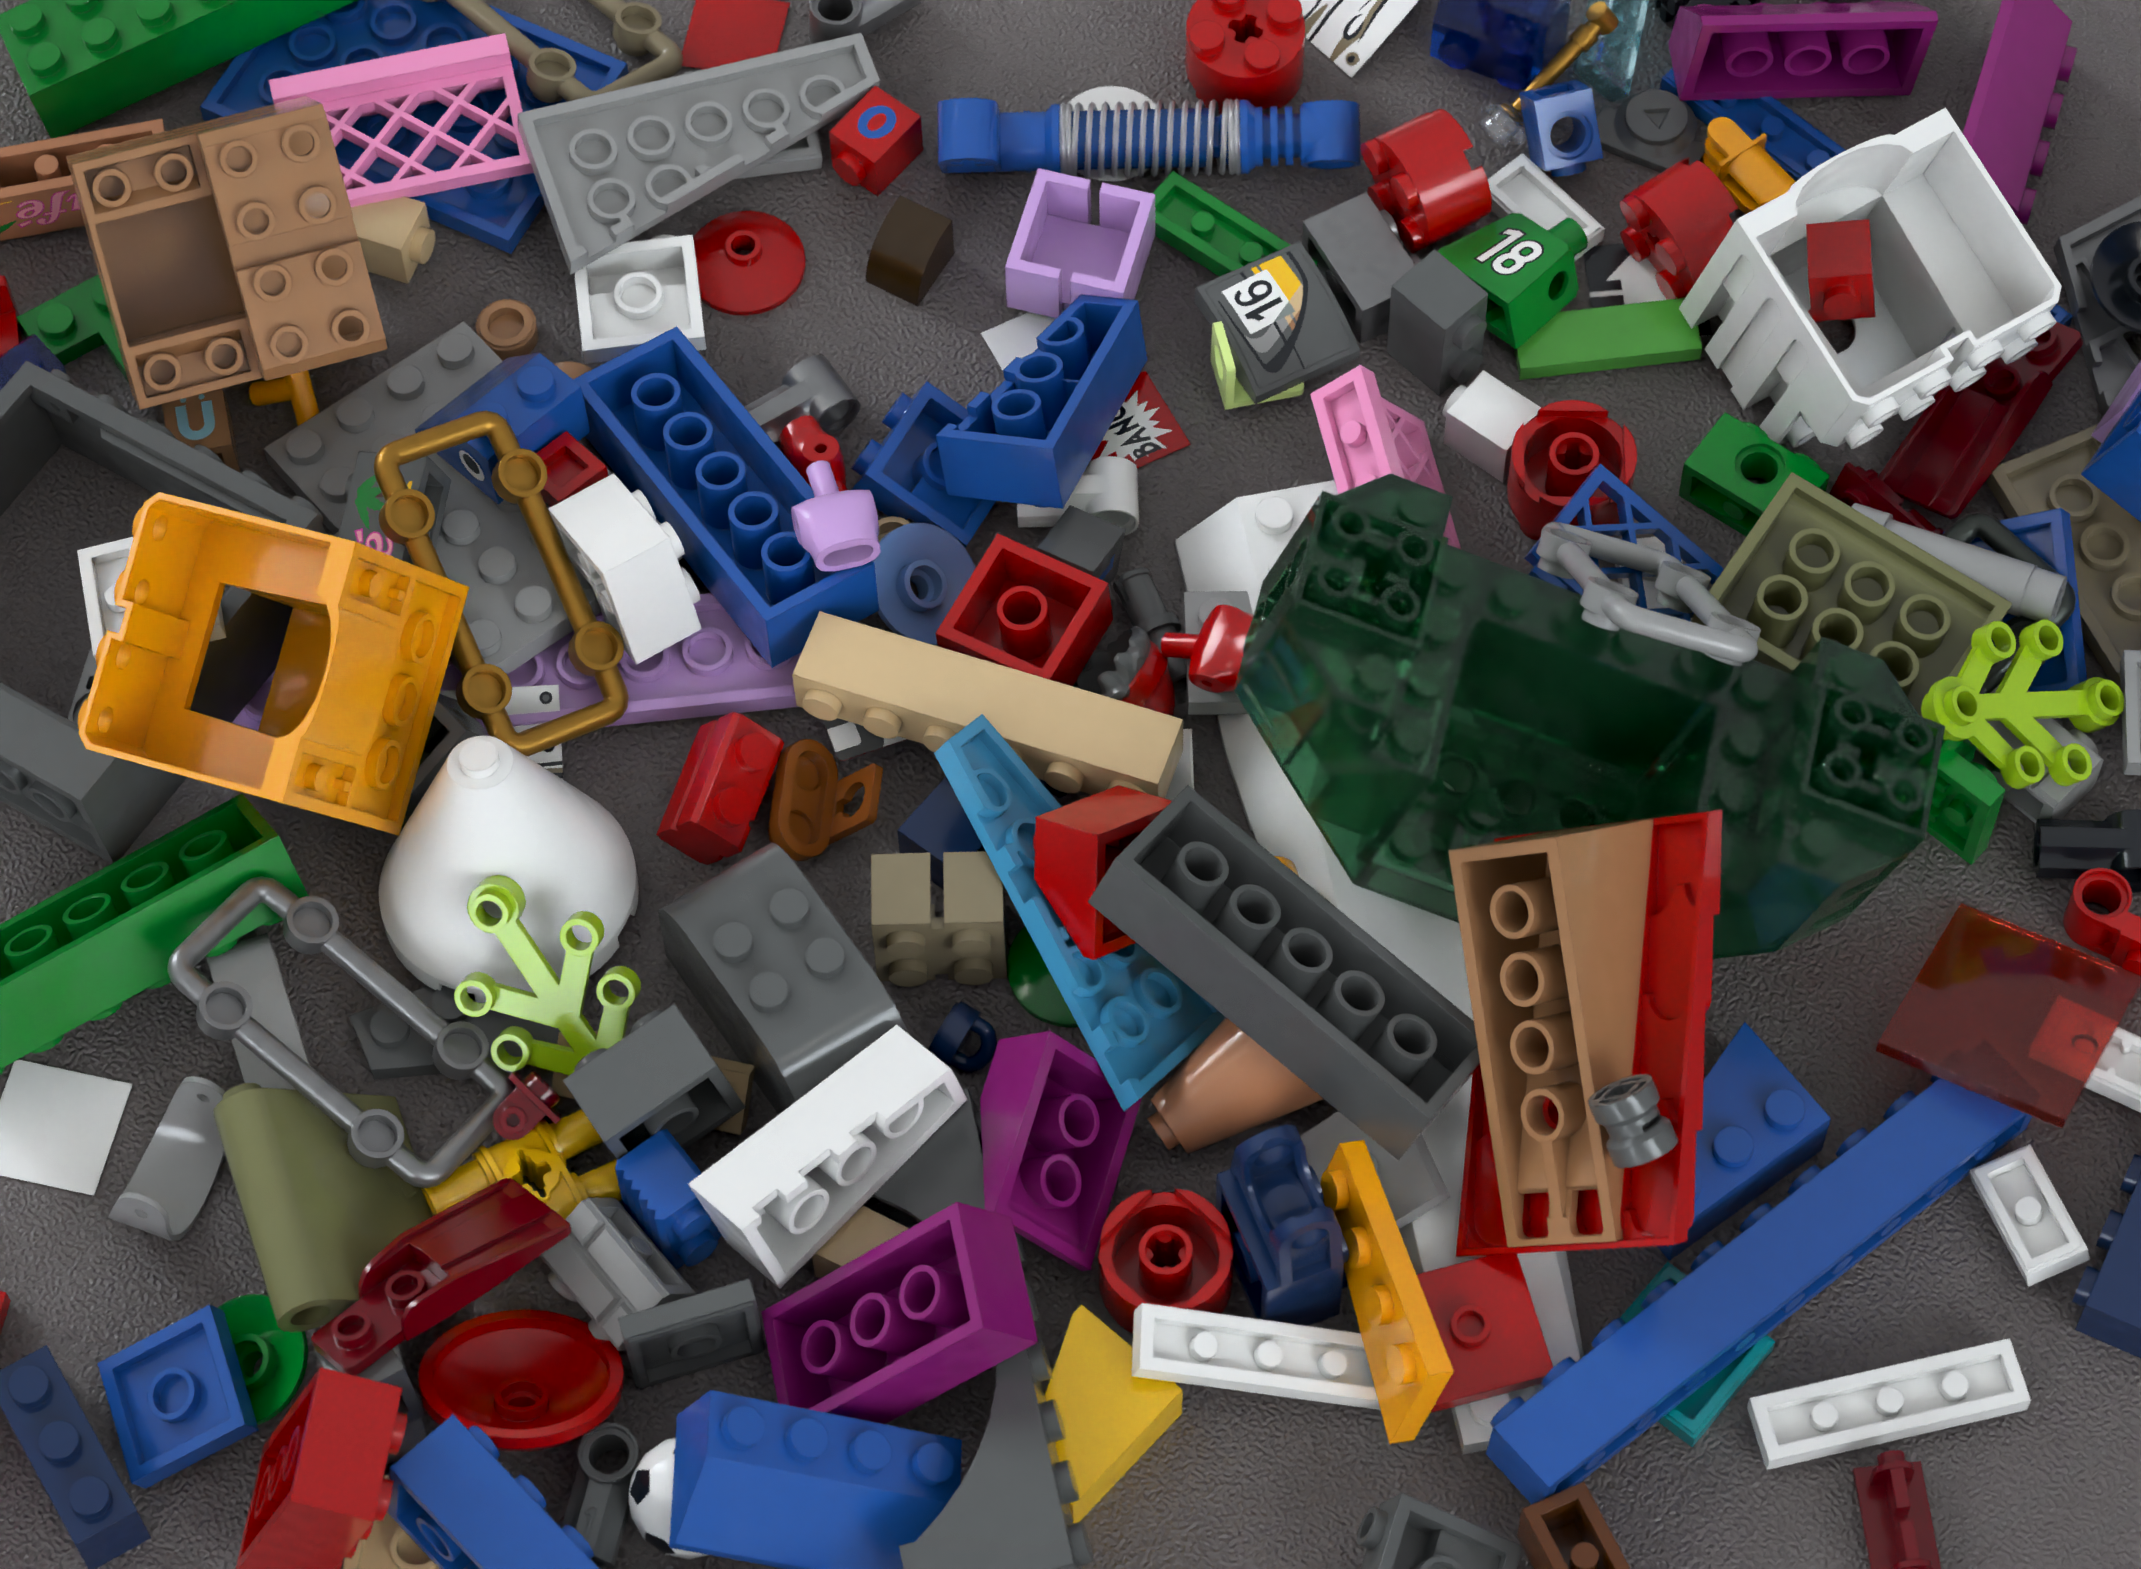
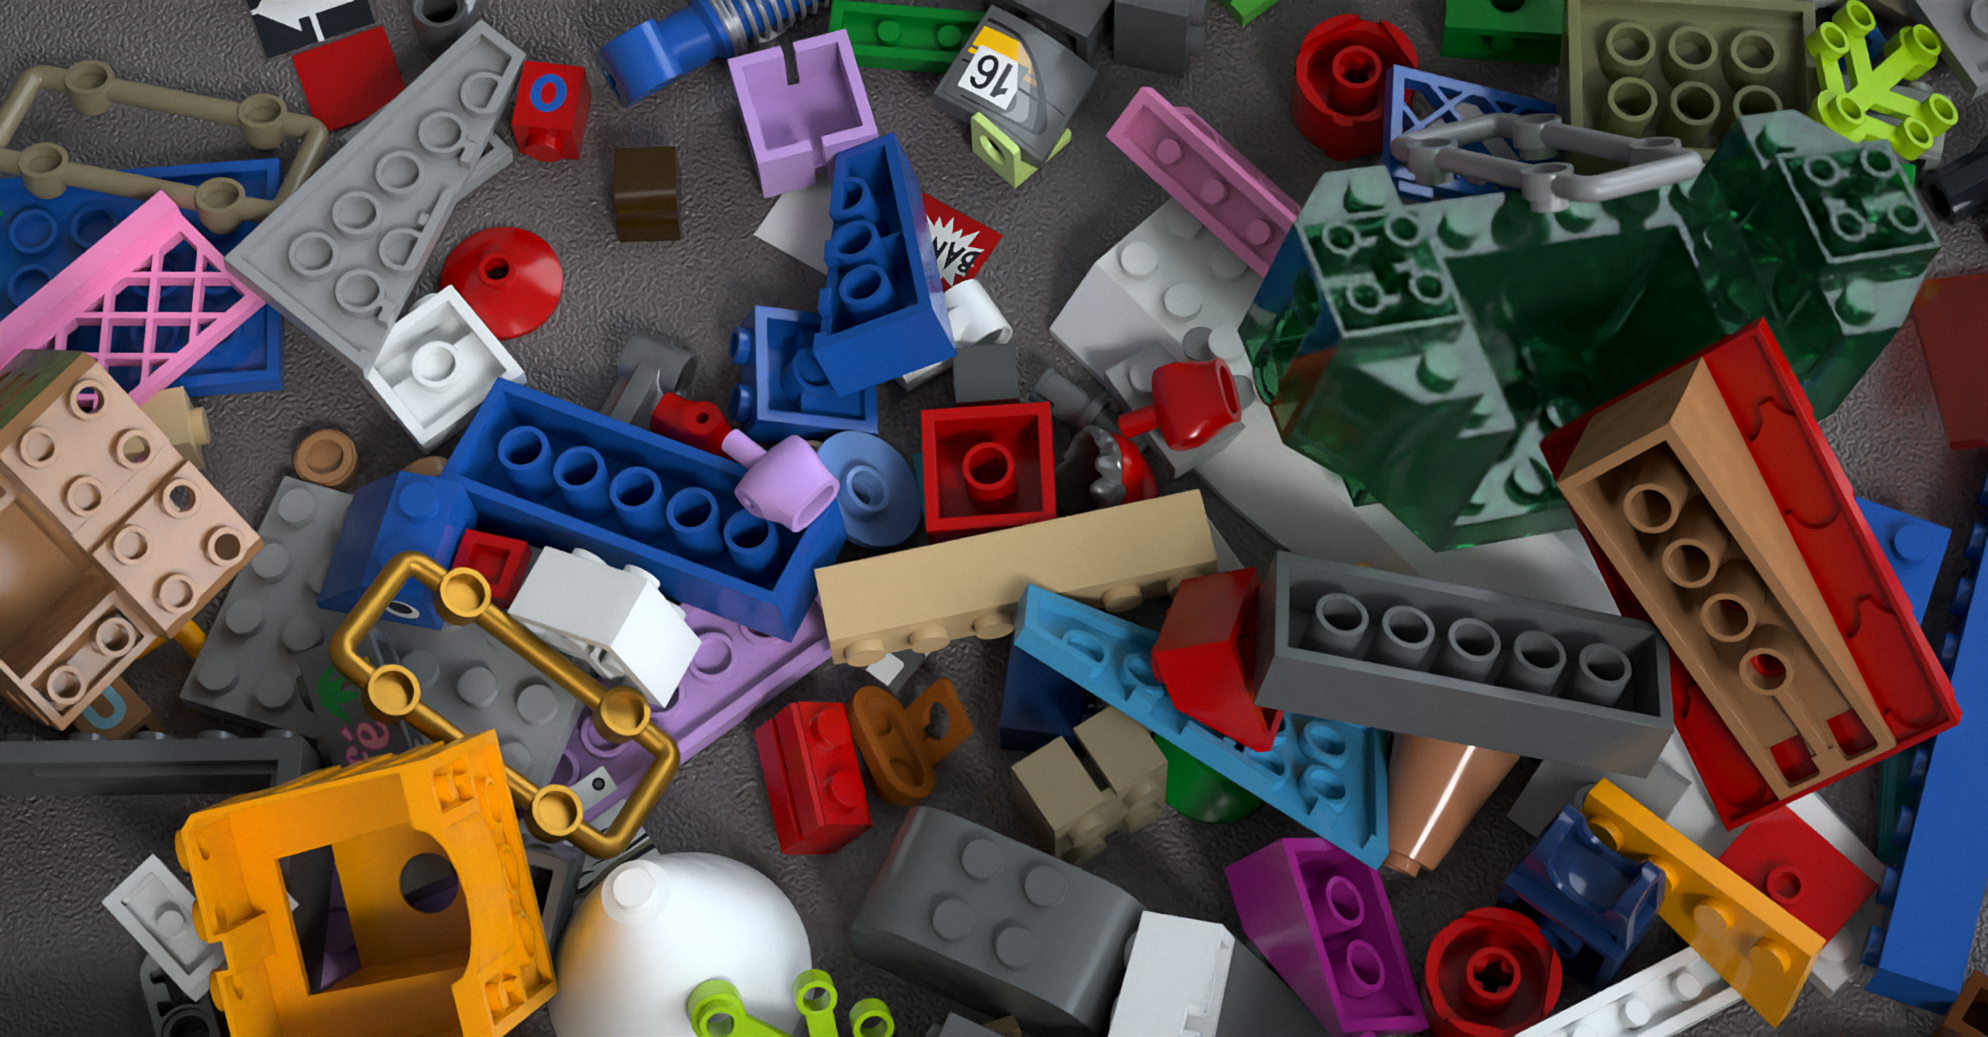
camera: 30 degrees left, 5 degrees up
(954, 1034) = (1164, 881): dark blue tile -> none
(1484, 422) = (1253, 79): white brick -> none
(1633, 1121) = (1873, 642): dark grey wheel -> none

